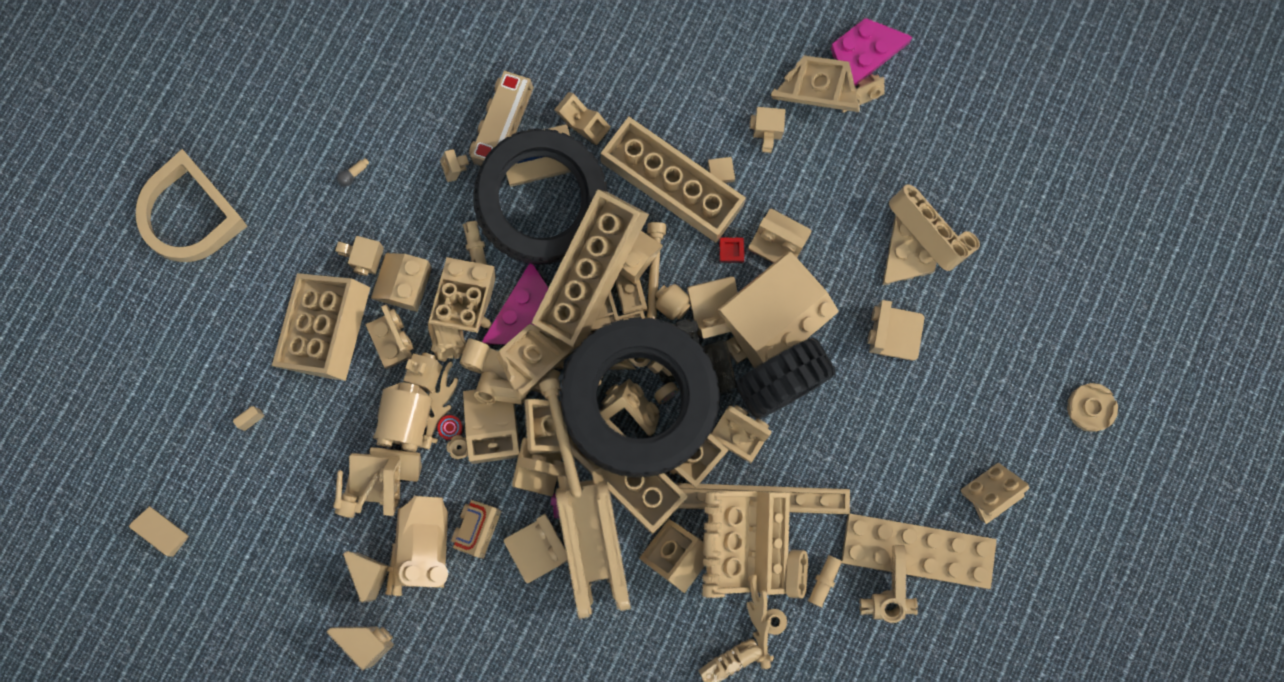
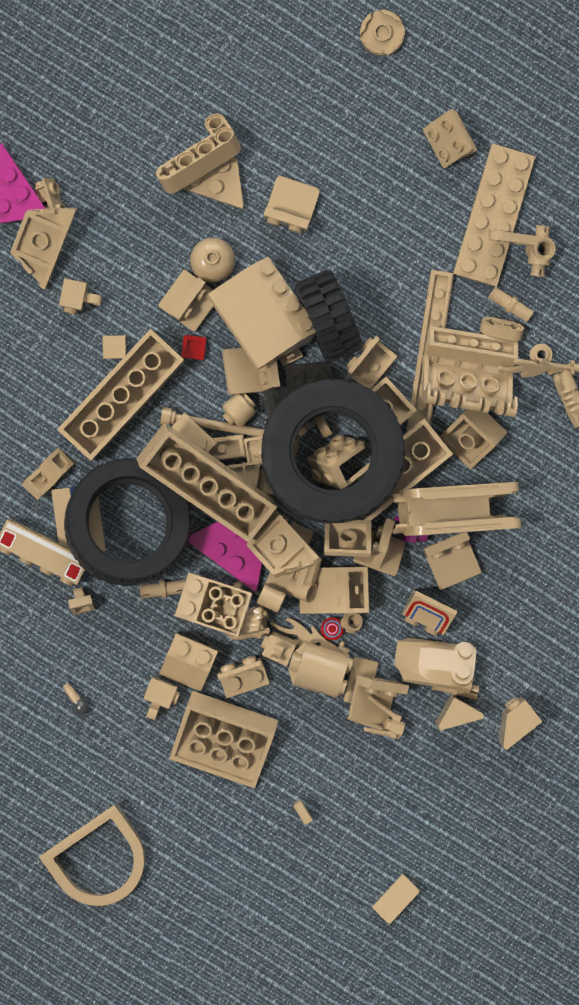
camera: 80 degrees left, 10 degrees up
(550, 389) = (316, 530): tan piece -> none
(826, 258) = (212, 260): none -> tan cylinder

